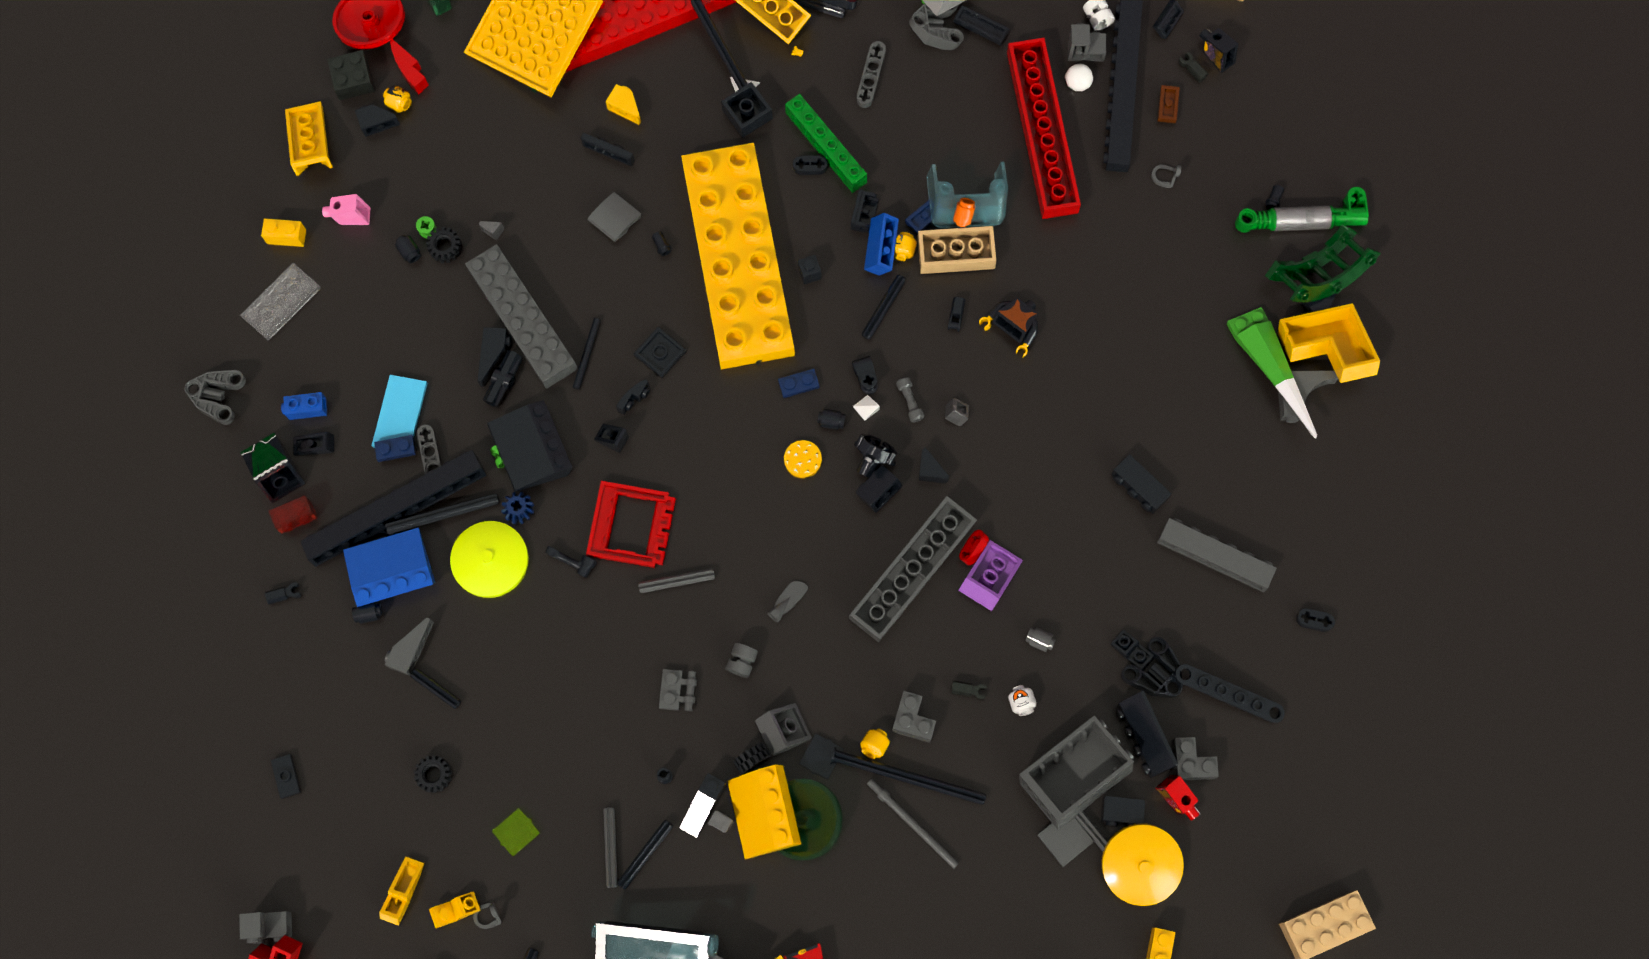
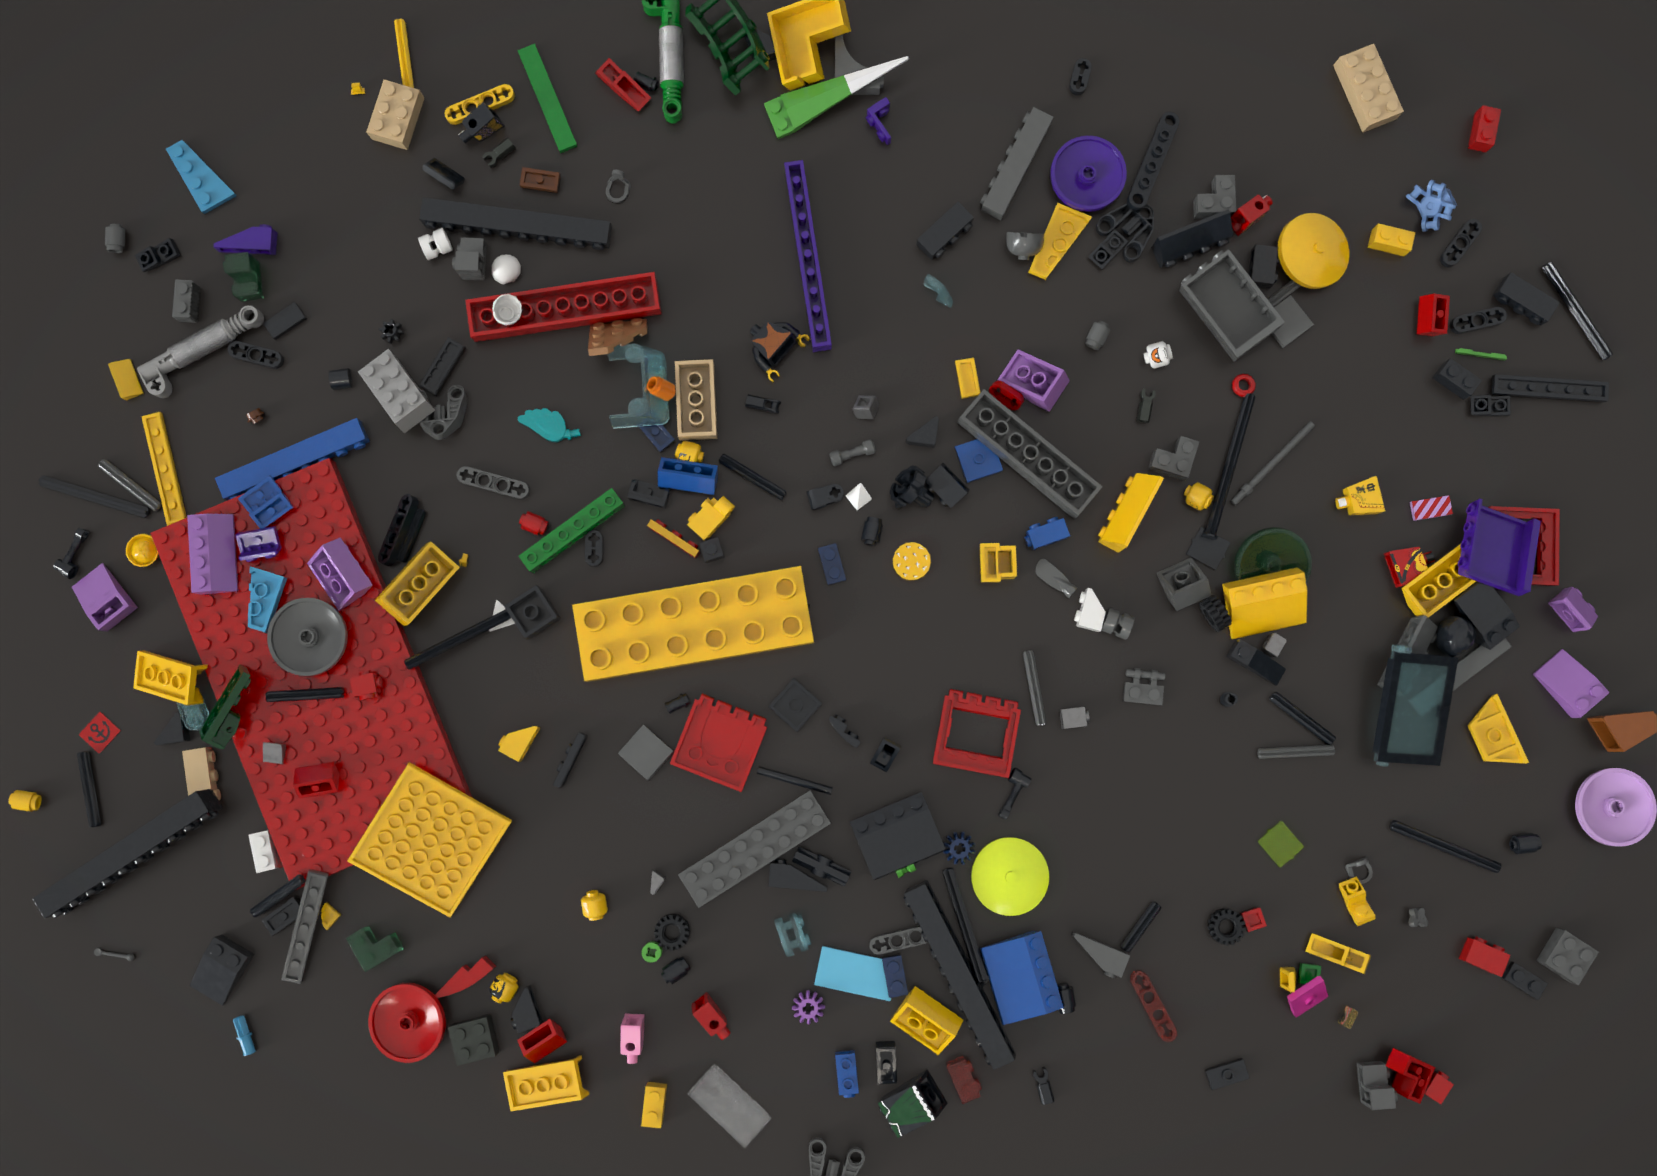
camera: 90 degrees left, 10 degrees up
(336, 900) = (1348, 1017): none -> clear yellow tile
(347, 132) = (542, 1041): none -> red brick
(352, 480) = (927, 1020): none -> yellow slope
(355, 698) = (1152, 1006): none -> clear red beam
(358, 854) = (1307, 996): none -> dark pink plate
(363, 279) = (705, 1011): none -> red torso
(365, 363) = (814, 1011): none -> medium lavender gear
(377, 837) = (1288, 978): none -> yellow slope
(382, 860) = (1308, 972): none -> green plate
(434, 361) = (802, 941): none -> clear light blue brick
(439, 801) = (1253, 919): none -> red plate
(471, 174) = (594, 905): none -> yellow head
(623, 282) = (719, 743): none -> red hinge
(645, 618) = (1074, 717): none -> flat silver brick
(752, 633) = (1091, 612): none -> white slope
(801, 539) = (997, 562): none -> yellow plate
(821, 234) = (674, 537): none -> pearl gold plate
(831, 588) = (1047, 534): none -> blue brick
(832, 110) = (533, 523): none -> red brick
(841, 266) = (710, 517): none -> yellow hinge
(854, 669) = (1130, 511): none -> yellow slope
(877, 916) = (1362, 498): none -> yellow torso
(905, 521) = (977, 460): none -> blue plate
(928, 121) = (548, 424): none -> teal animal
(991, 510) = (967, 378): none -> yellow tile
(994, 783) = (1235, 385): none -> red piece
(1018, 171) = (607, 336): none -> medium nougat plate
(1034, 70) = (507, 309): none -> white hair
(1075, 483) = (943, 296): none -> clear light blue slope
(1106, 350) = (808, 256): none -> dark purple brick
(1132, 562) = (1024, 244): none -> dark grey cylinder
(1142, 599) = (1059, 236): none -> yellow wing
(1210, 626) = (1088, 173): none -> dark purple dish
(1243, 47) = (477, 100): none -> yellow beam
(1250, 108) = (547, 98): none -> green tile
(1263, 417) = (879, 110): none -> dark purple bracket
(1269, 175) = (622, 85): none -> red slope

